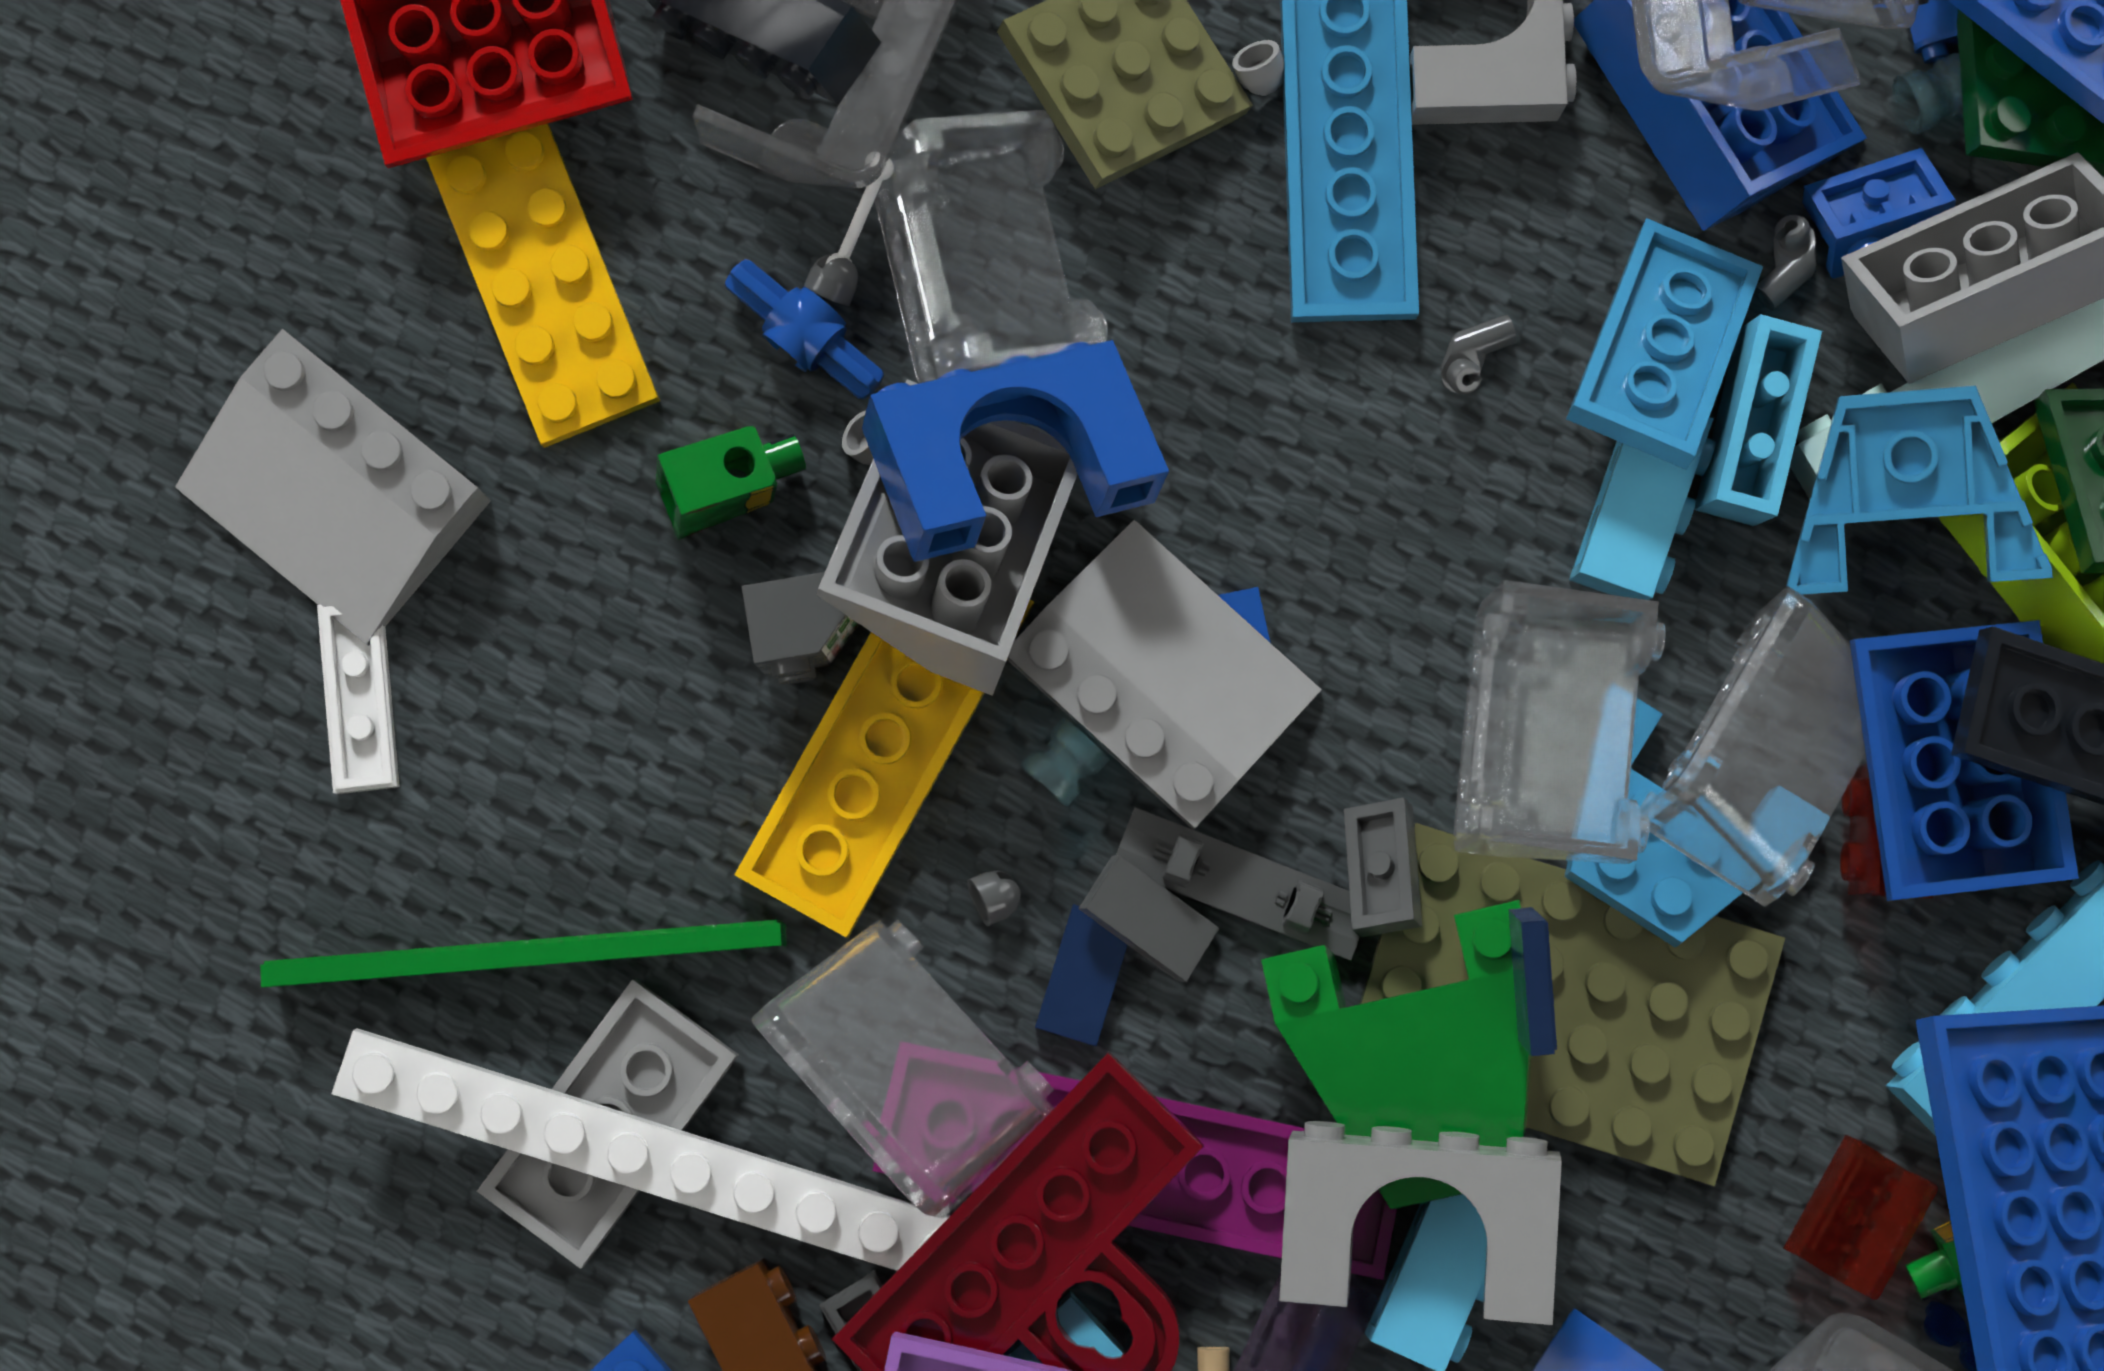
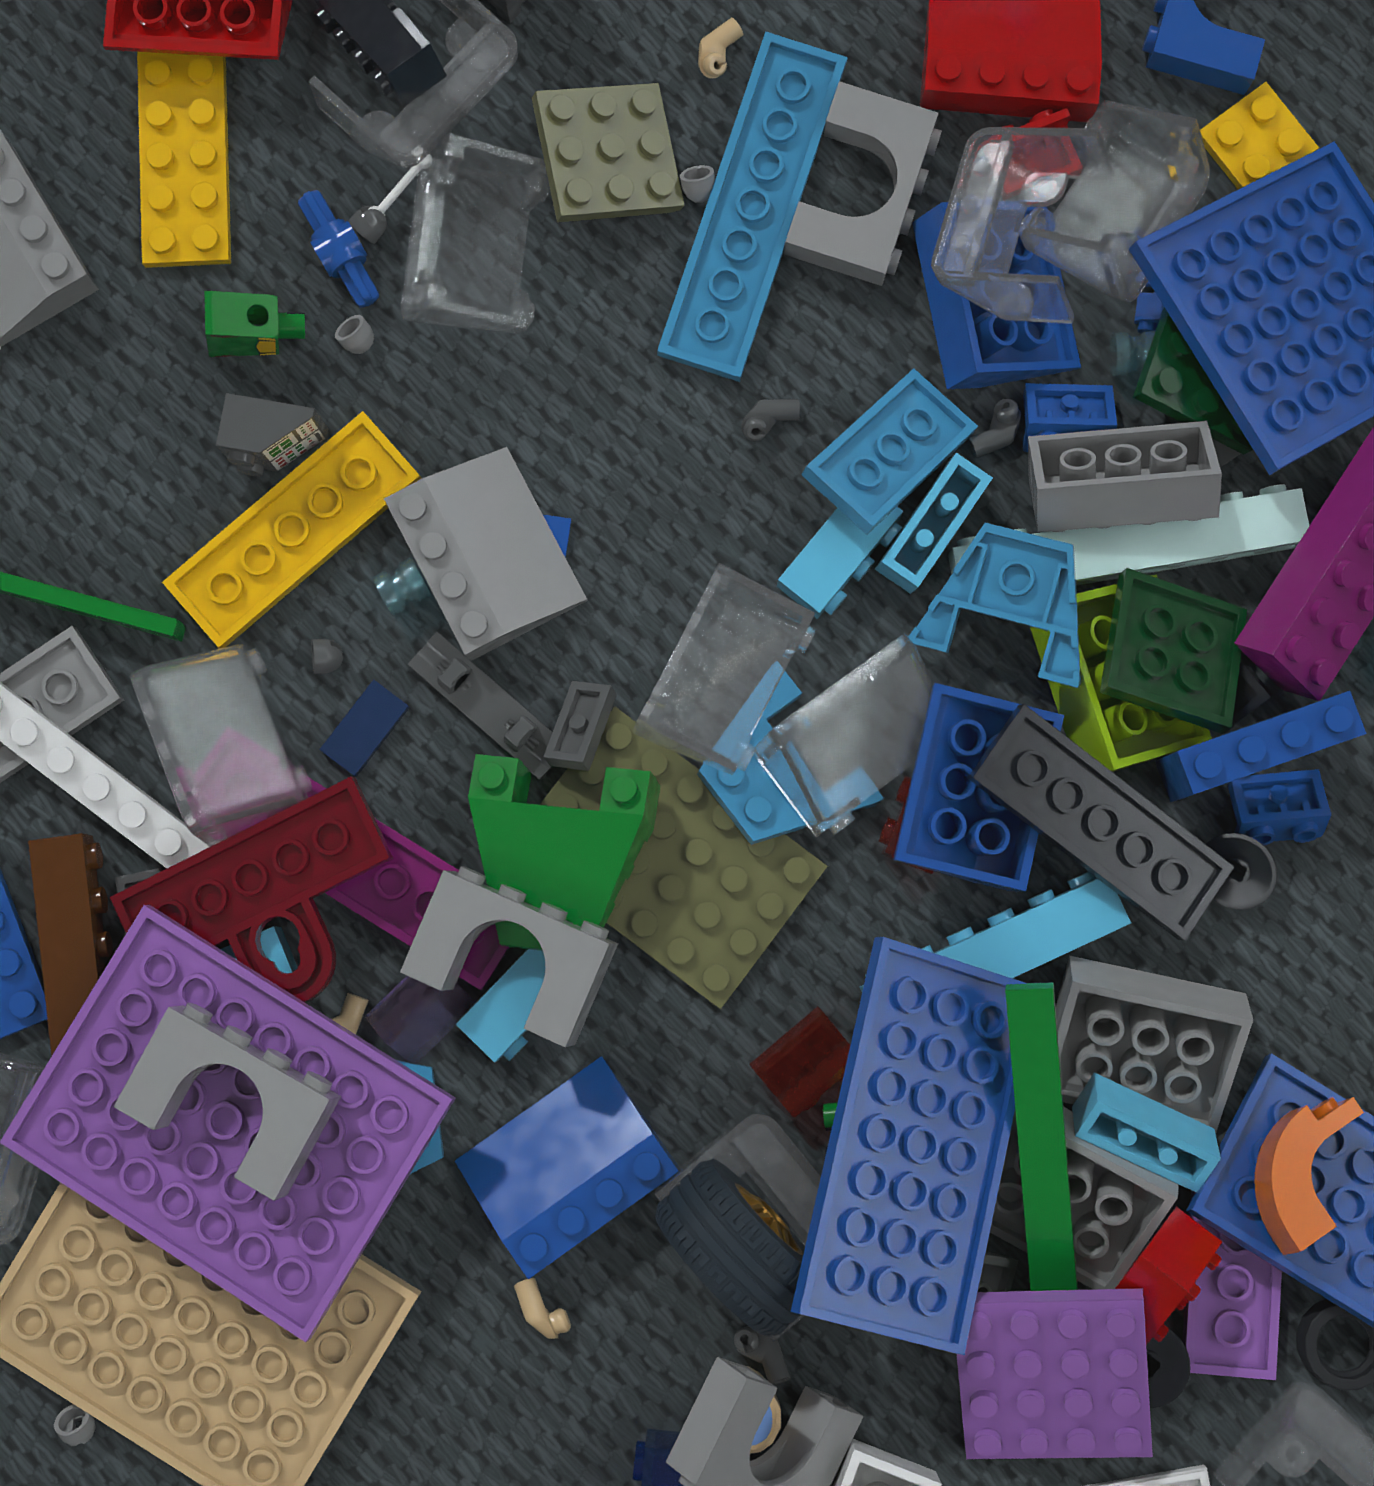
camera: 20 degrees right, 0 degrees up
(967, 605) = (376, 409): light grey slope -> none
(1071, 394) = (487, 346): blue arch -> none
(1148, 918) = (417, 705): dark grey tile -> none
(1533, 981) = (634, 822): dark blue tile -> none

